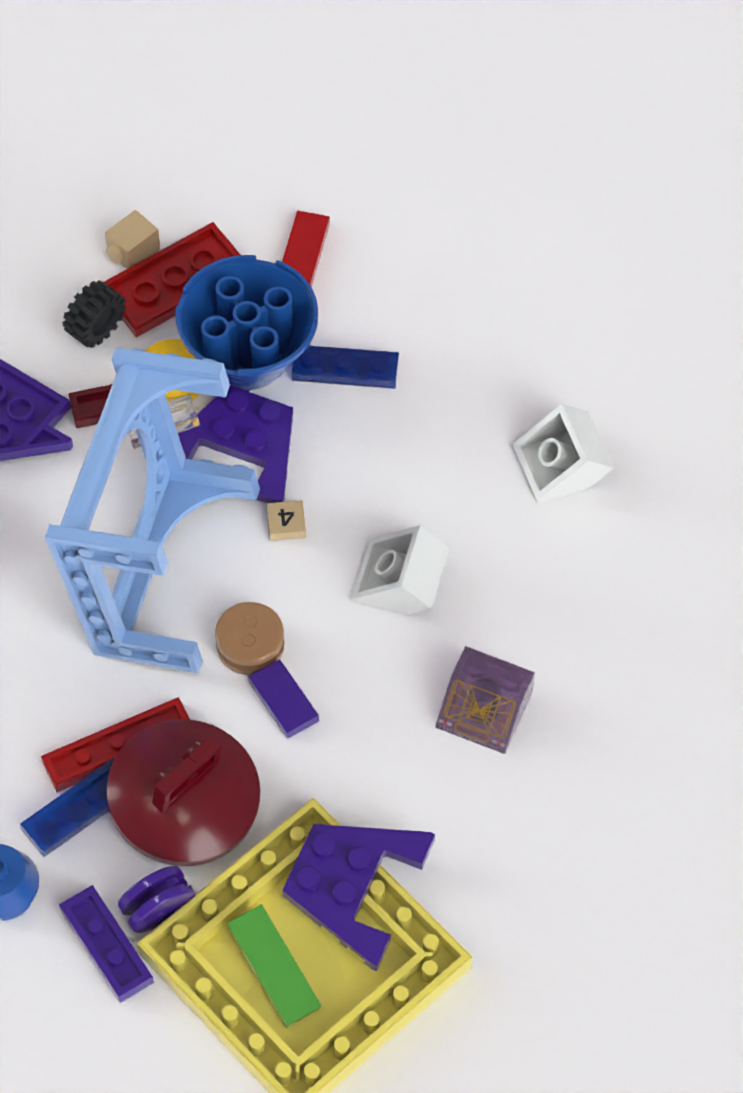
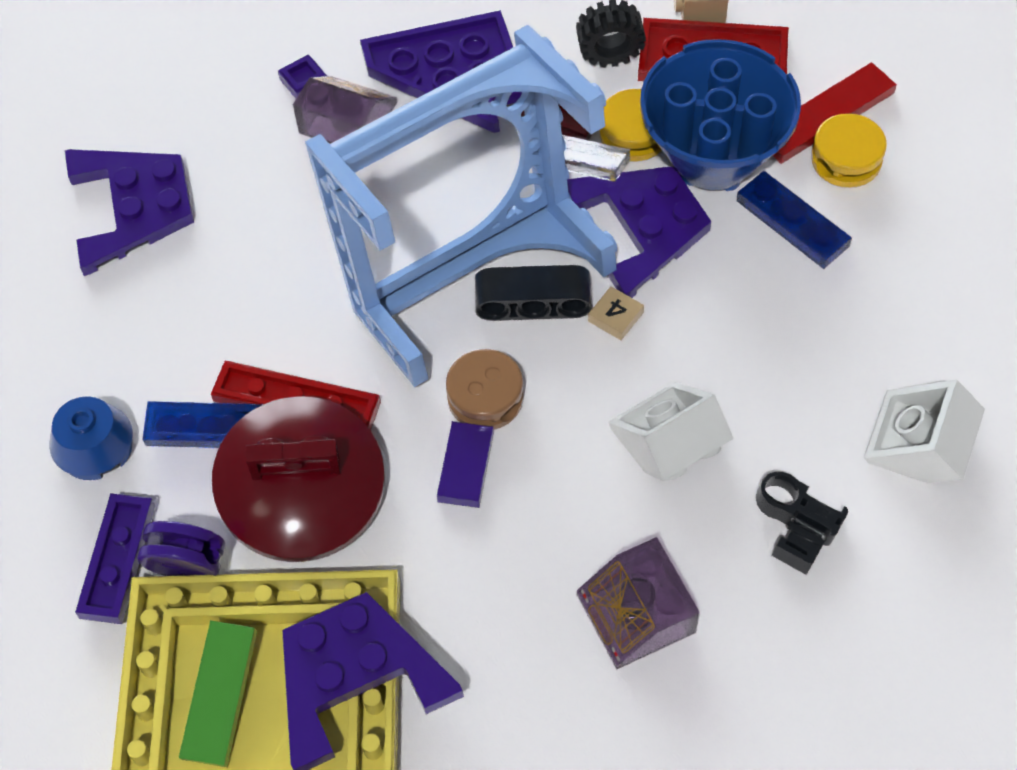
camera: 45 degrees right, 0 degrees up
(217, 547) = (533, 292): none -> black beam
(341, 288) = (848, 150): none -> yellow head
(544, 567) = (810, 524): none -> black piece

